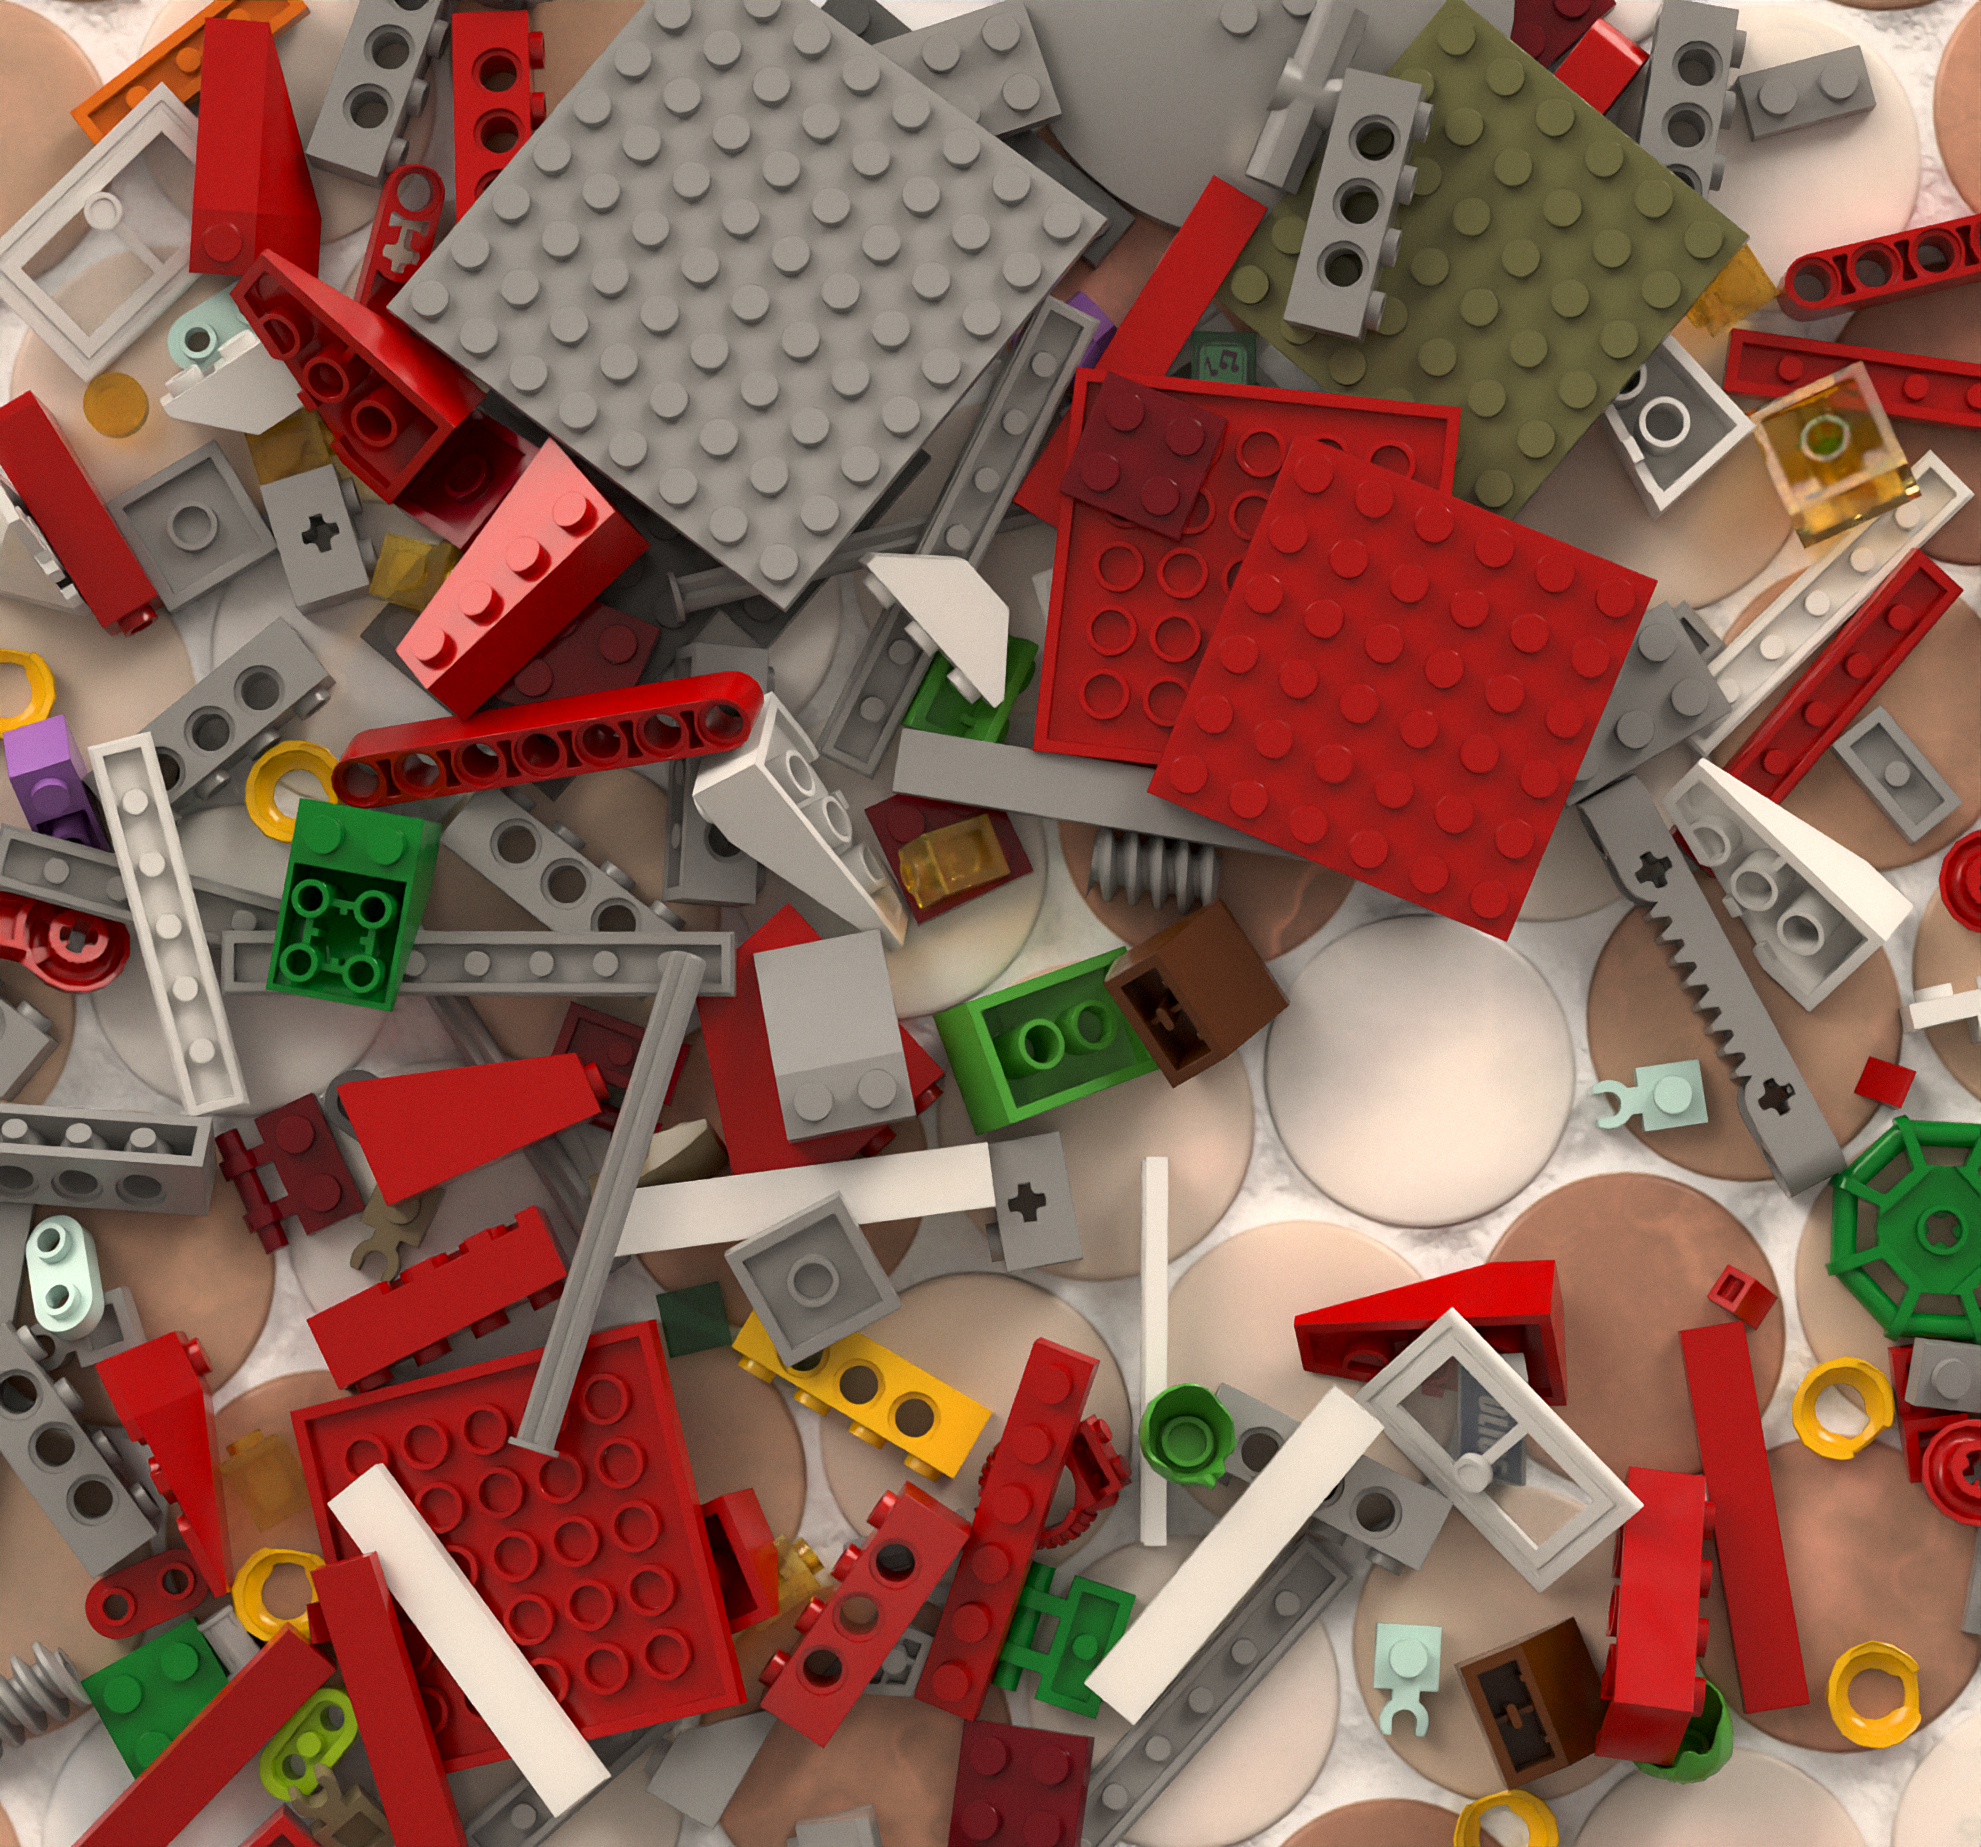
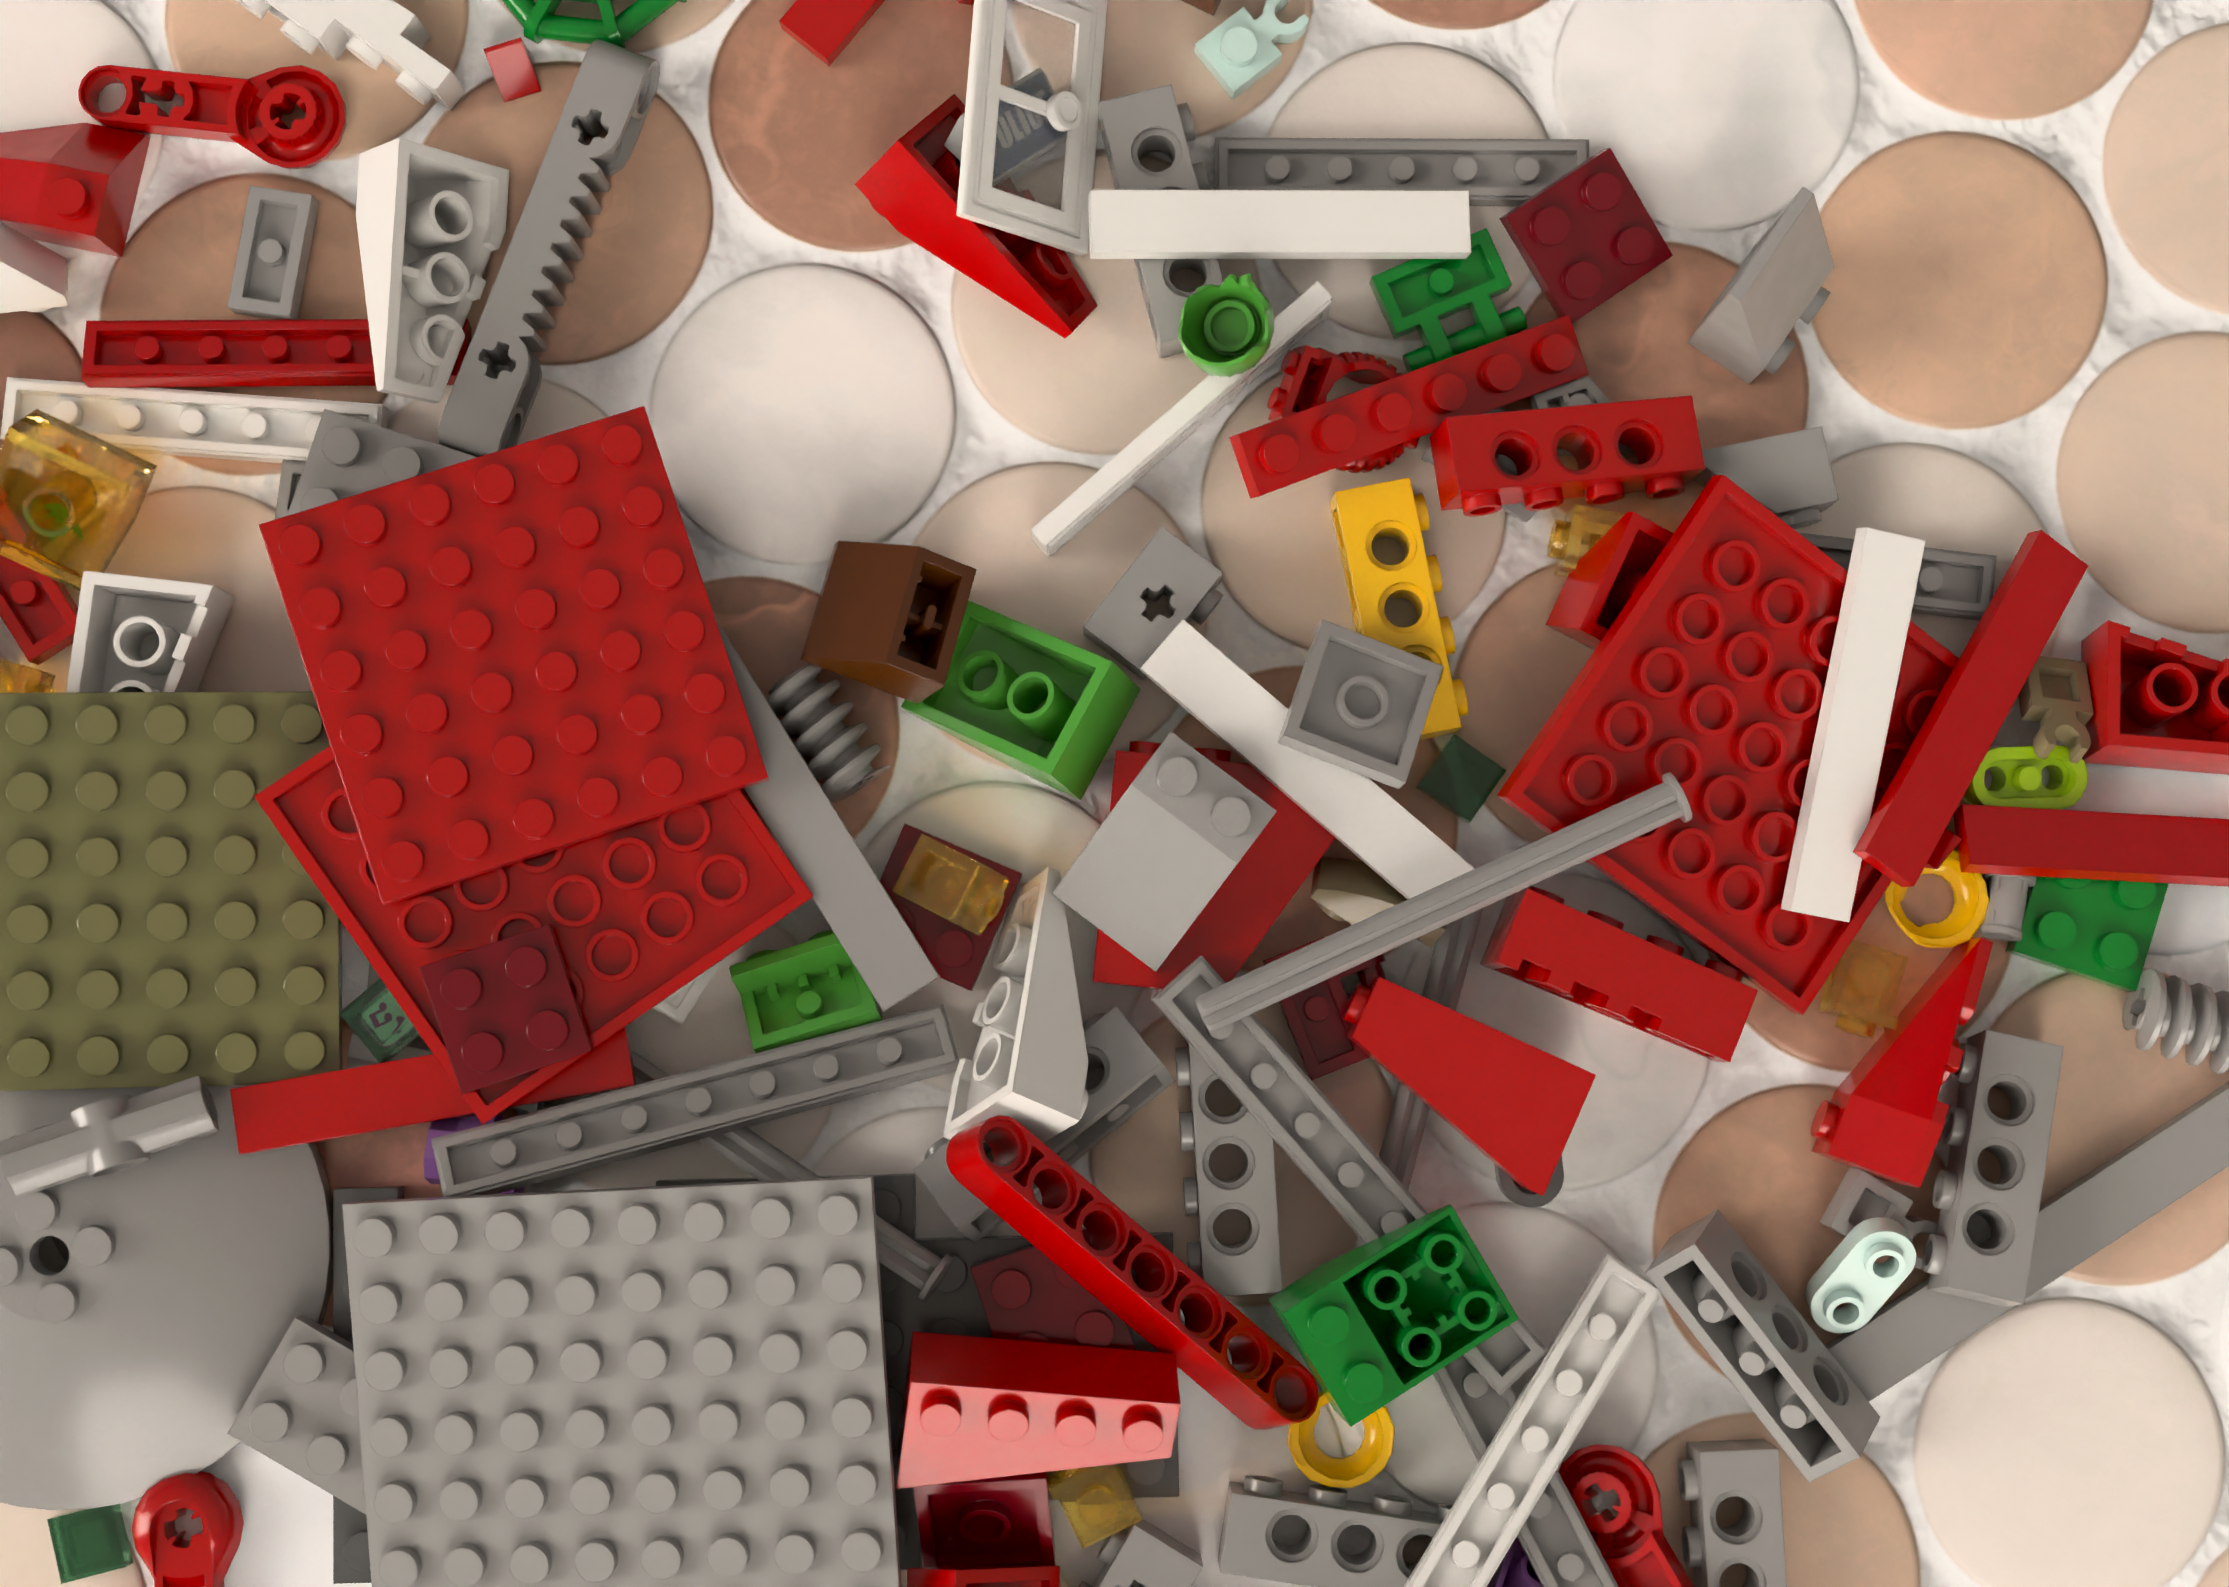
camera: 135 degrees left, 0 degrees up
(146, 1594) = (2029, 1001): red plate -> none
(308, 1164) = (1608, 1168): dark red plate -> none
(392, 1226) = (1588, 1054): dark tan plate -> none
(949, 613) = (762, 1052): white slope -> none
(1364, 105) = (69, 1078): light grey brick -> none
(1662, 1095) = (667, 221): light aqua plate -> none
(1742, 1296) = (762, 42): red piece -> none

